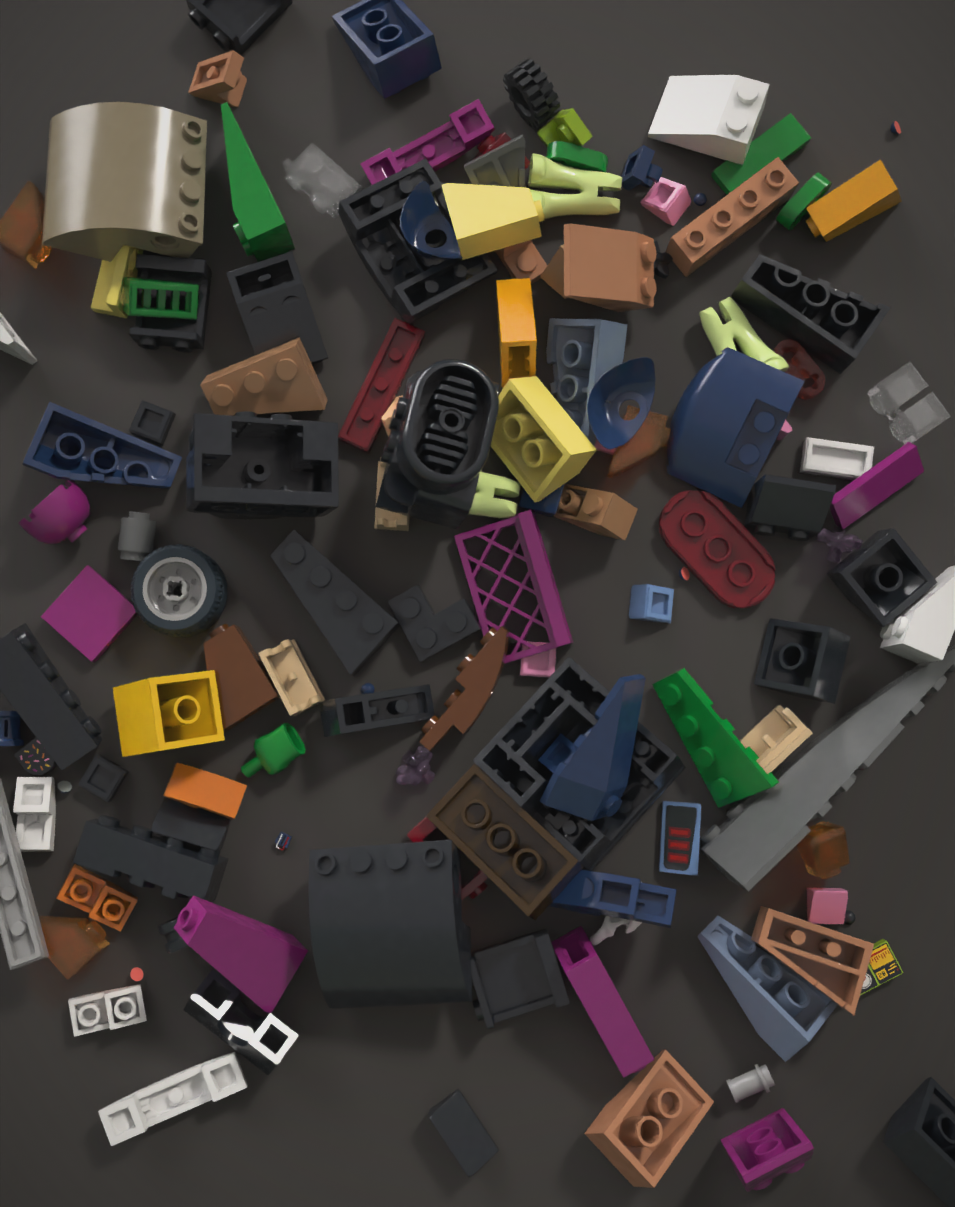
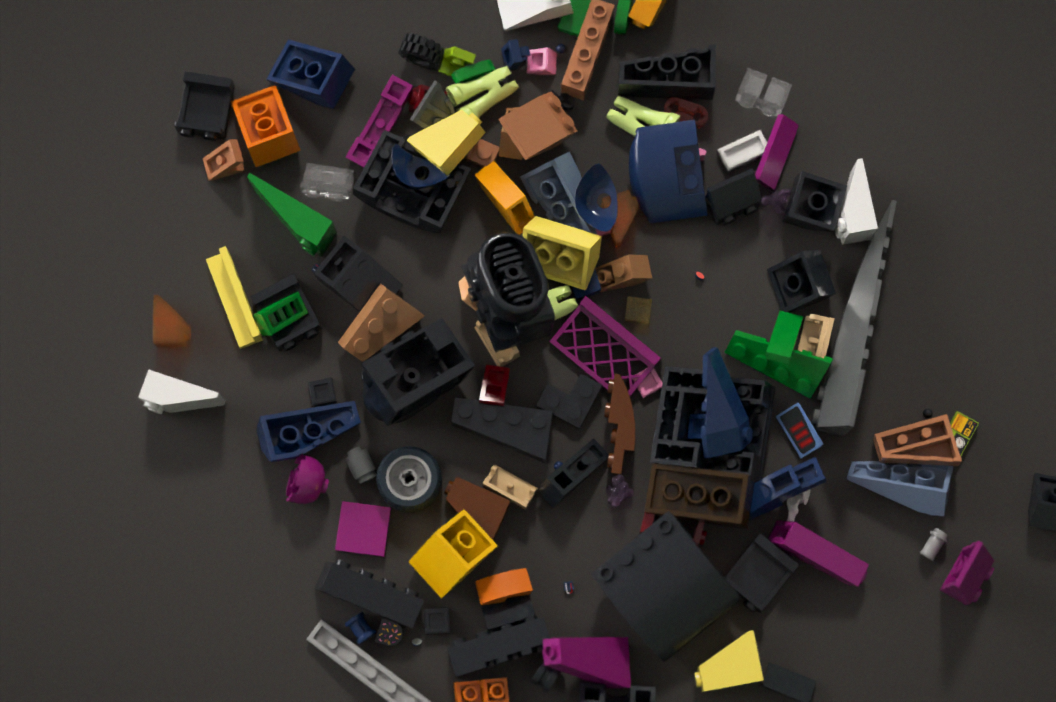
camera: 30 degrees left, 5 degrees down
(36, 813) = (410, 667): white slope -> none
(125, 180) = (215, 257): dark tan slope -> none
(275, 751) = (529, 536): green piece -> none
(292, 70) = (265, 126): none -> orange slope
(352, 546) = (494, 385): none -> dark red slope
(381, 385) = (445, 279): dark red tile -> none
(408, 1066) = (731, 666): none -> light yellow slope
(583, 567) = (638, 310): none -> clear yellow tile
(650, 1120) = (890, 603): nougat slope -> none
(651, 603) = (691, 305): medium blue slope -> none
(717, 549) = (709, 248): dark red tile -> none
(735, 717) = (784, 337): none -> green tile
(824, 849) = (885, 382): clear orange slope -> none
(826, 905) = (910, 412): bright pink slope -> none

